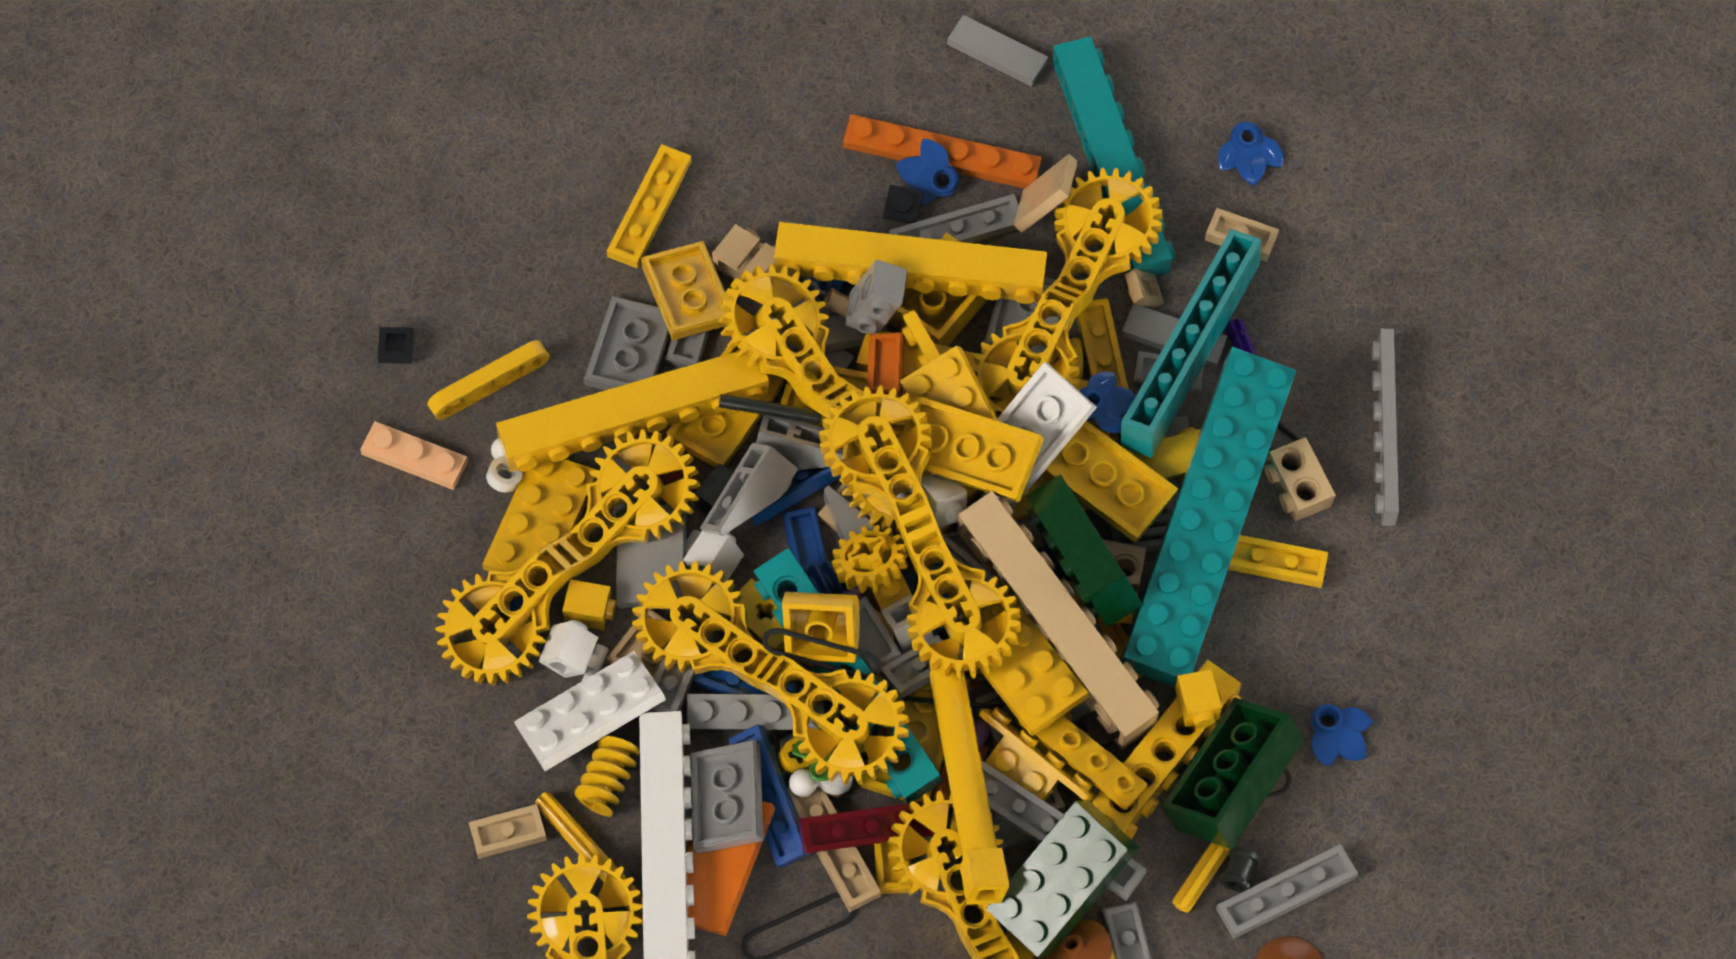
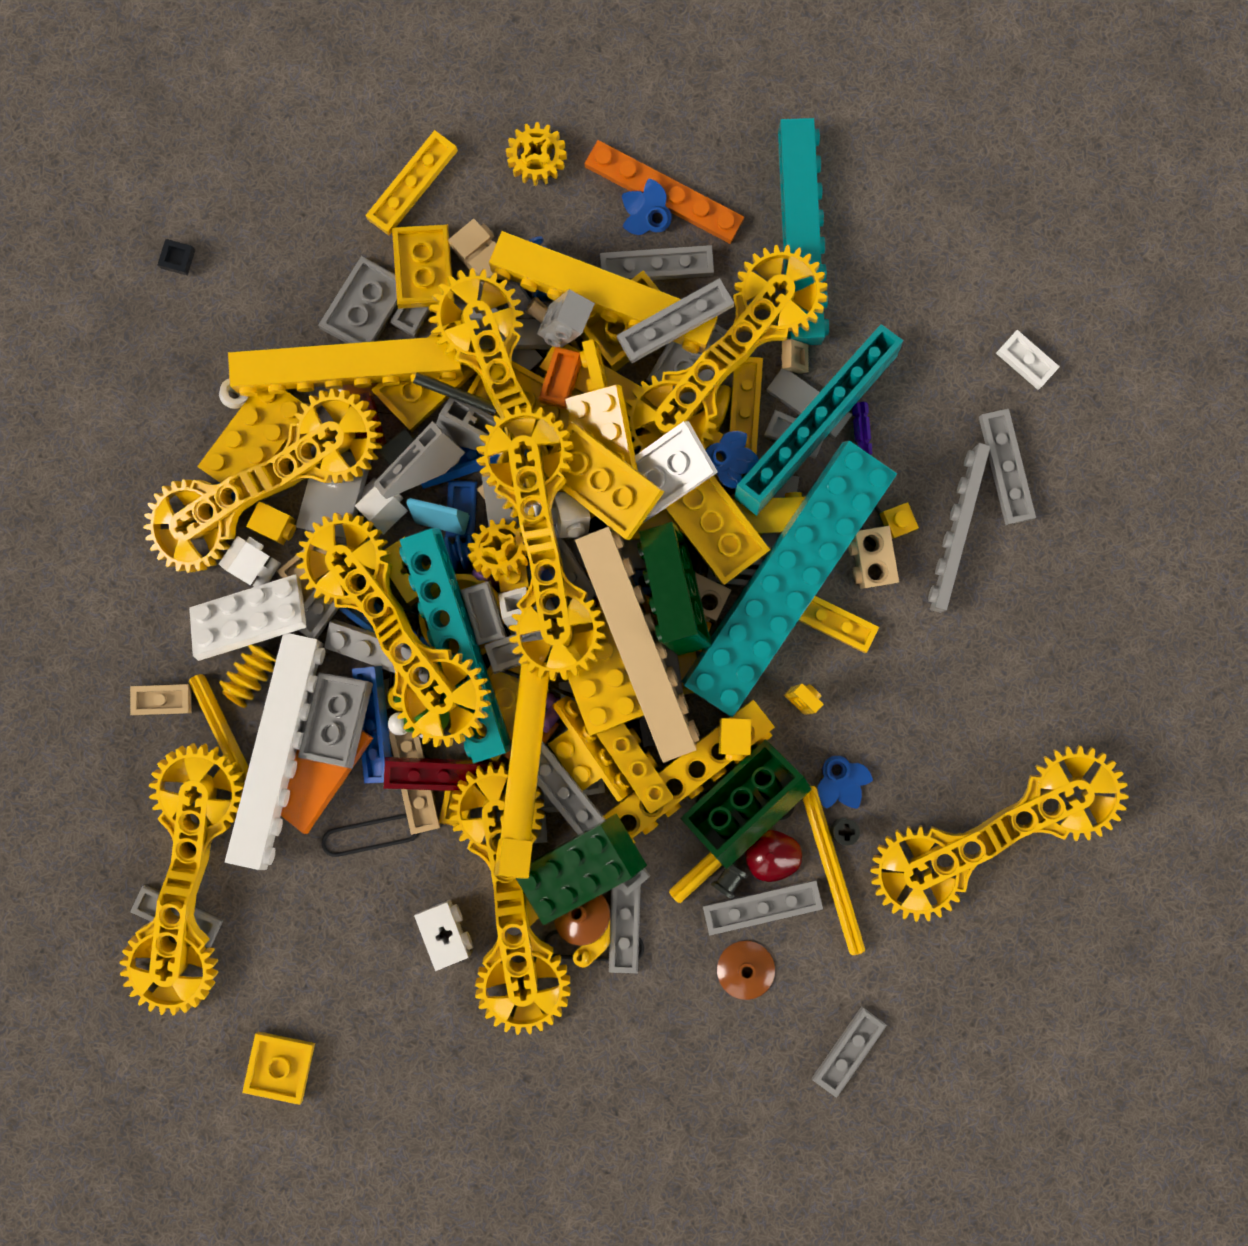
camera: 15 degrees right, 20 degrees up
(414, 455) = (169, 356): light nougat plate -> none
(488, 379) = (242, 306): yellow beam -> none
(766, 546) = (438, 516): none -> medium azure slope
(792, 152) = (535, 165): none -> yellow gear
(821, 642) = (434, 626): black piece -> none
(823, 617) = (437, 607): yellow brick -> none
(902, 204) = (618, 232): black plate -> none
(997, 50) = (735, 110): light grey tile -> none
(1002, 267) = (675, 320): none -> light grey plate
(1045, 193) = (736, 254): tan tile -> none
(1224, 221) = (881, 314): tan plate -> none
(1252, 156) = (917, 258): blue plate -> none
(1264, 638) = (804, 698): none -> yellow plate
(1282, 833) = (774, 856): none -> dark red hat
(1318, 433) = (900, 520): none -> yellow plate
(1357, 833) = (833, 872): none -> yellow axle
(1363, 775) = (851, 837): none -> pearl dark grey bush
(1408, 233) = (1027, 359): none -> white plate
(1421, 351) = (1007, 467): none -> light grey plate
(1532, 738) = (998, 832): none -> yellow beam

